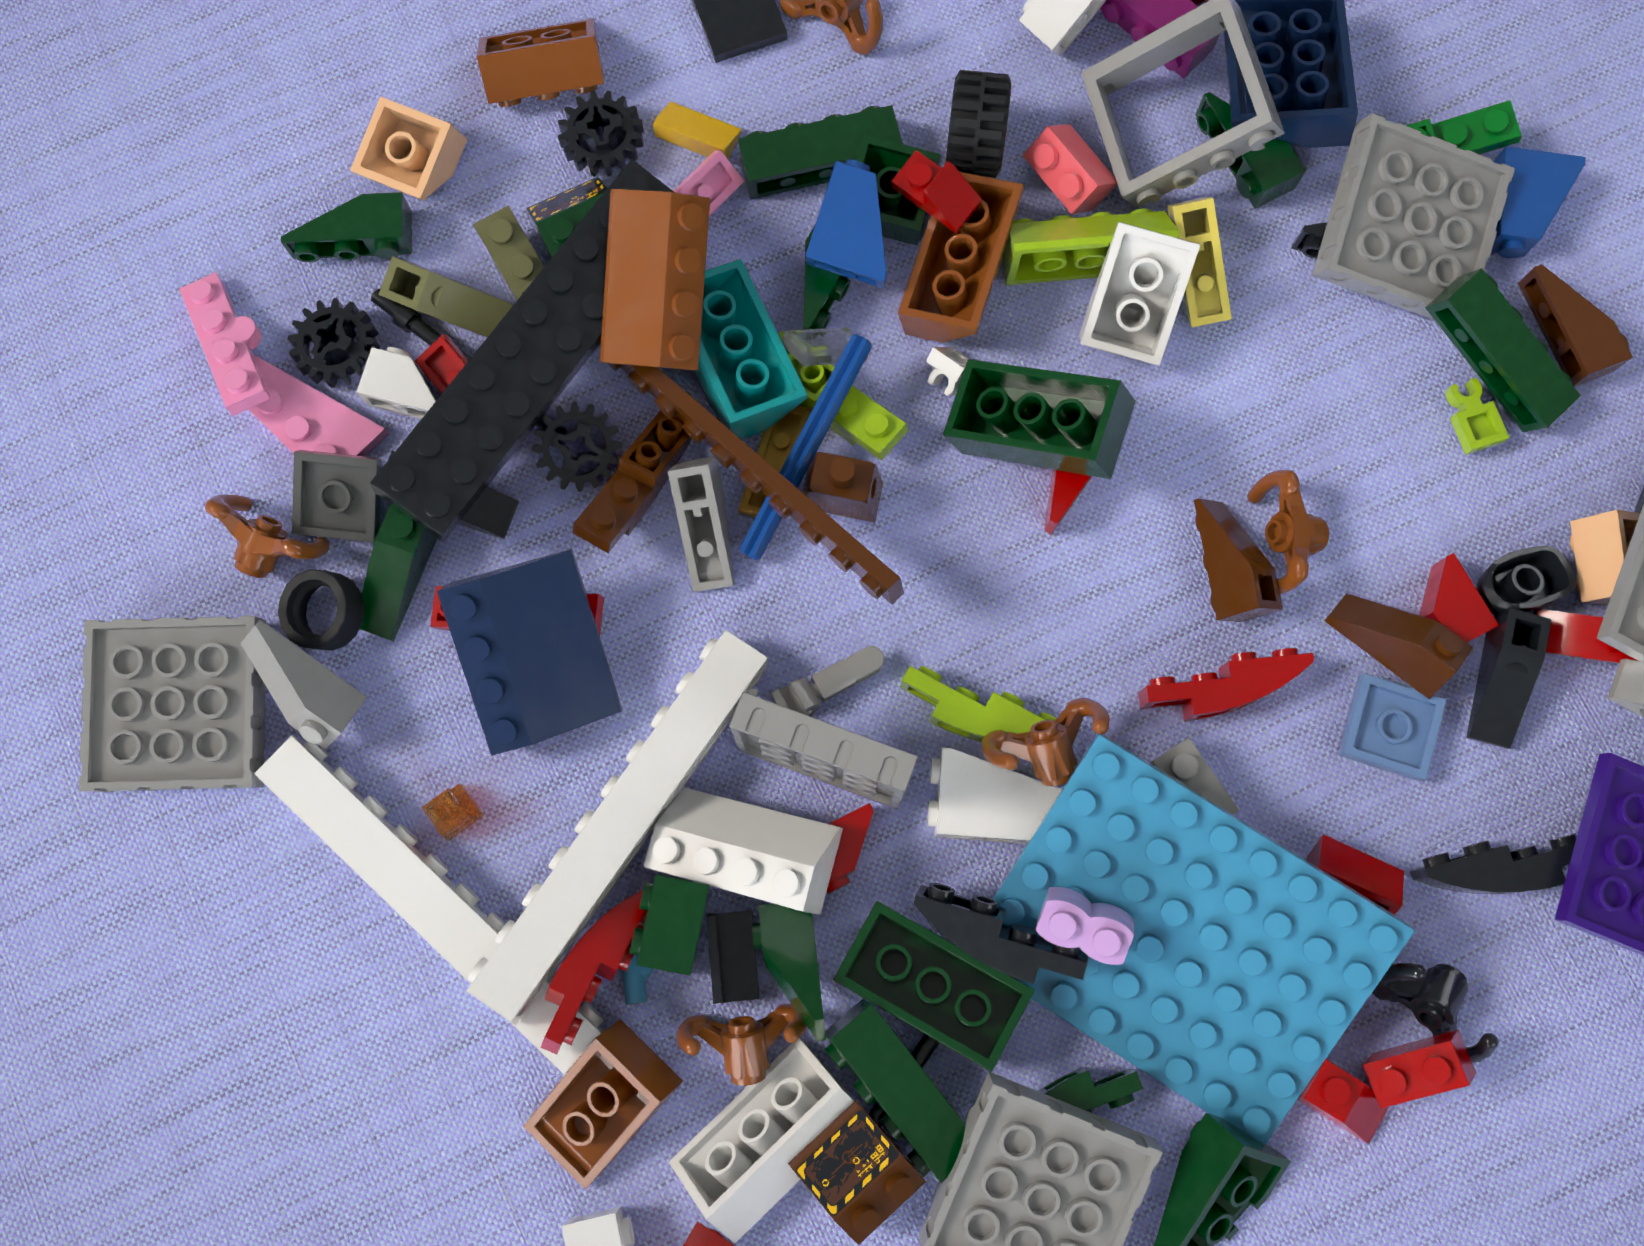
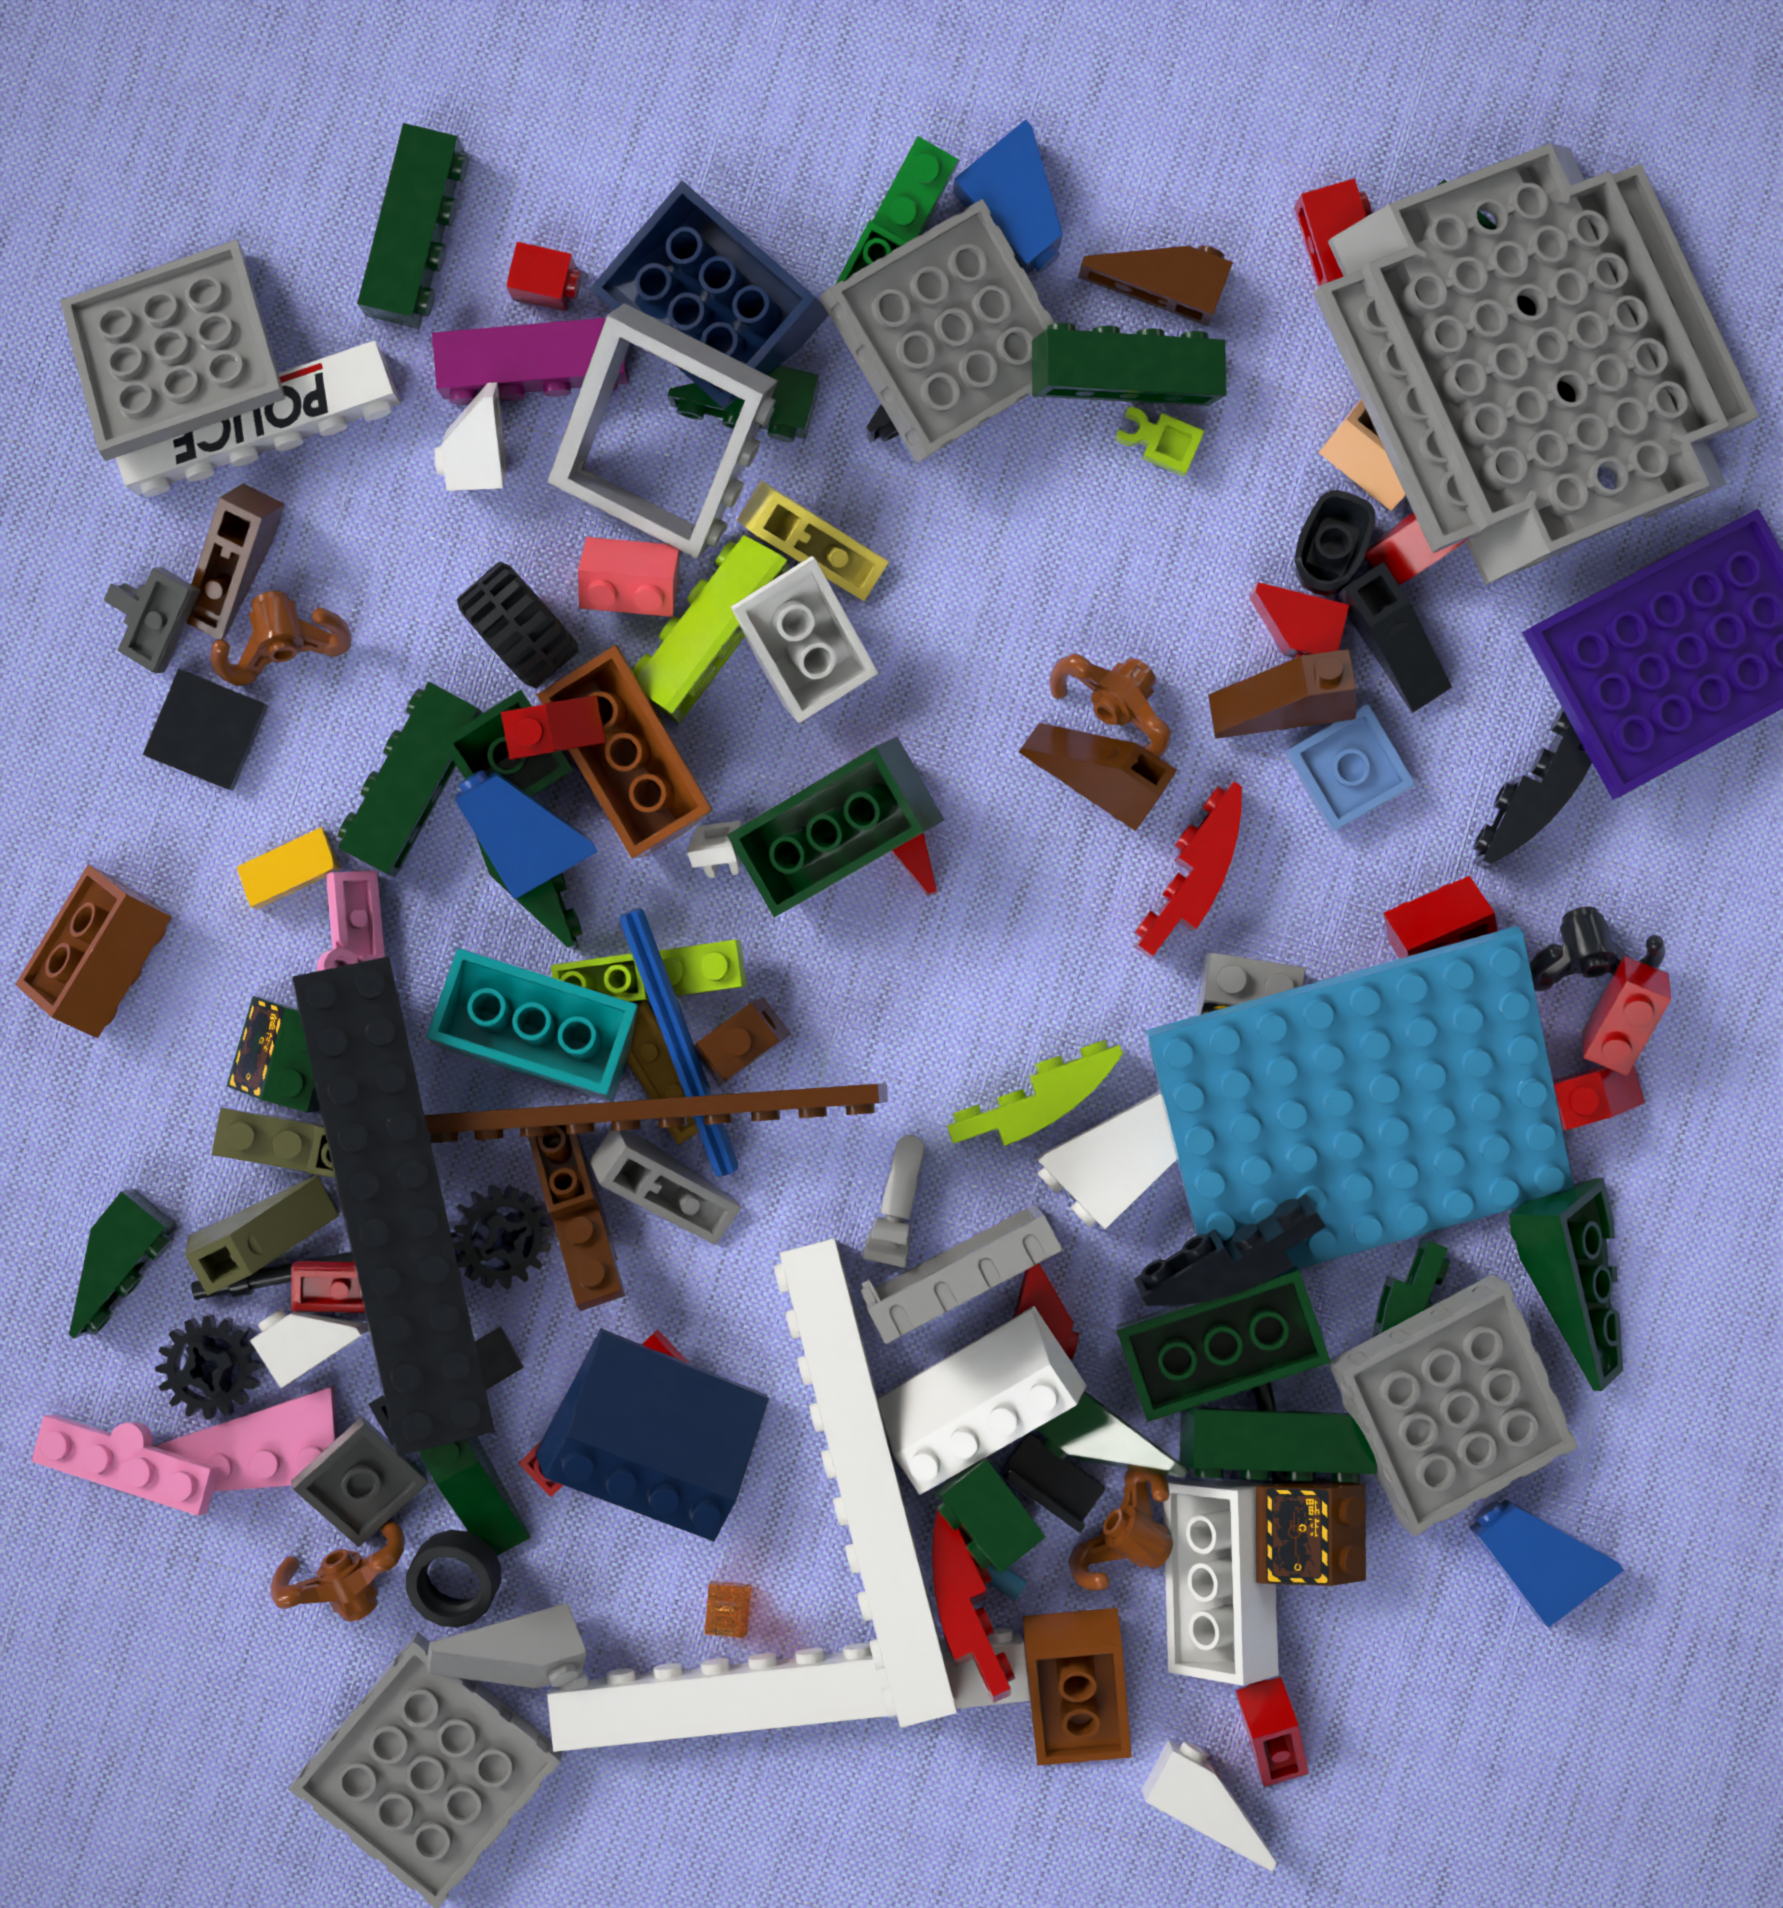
camera: 50 degrees left, 10 degrees up
(408, 150) = (83, 1151): light nougat slope -> none
(581, 133) = (205, 975): black gear -> none
(654, 279) = (426, 1056): dark orange slope -> none
(817, 345) = (599, 946): clear tile -> none
(1047, 744) = (1113, 1075): dark orange piece -> none
(1097, 928) = (1294, 1180): lavender brick -> none

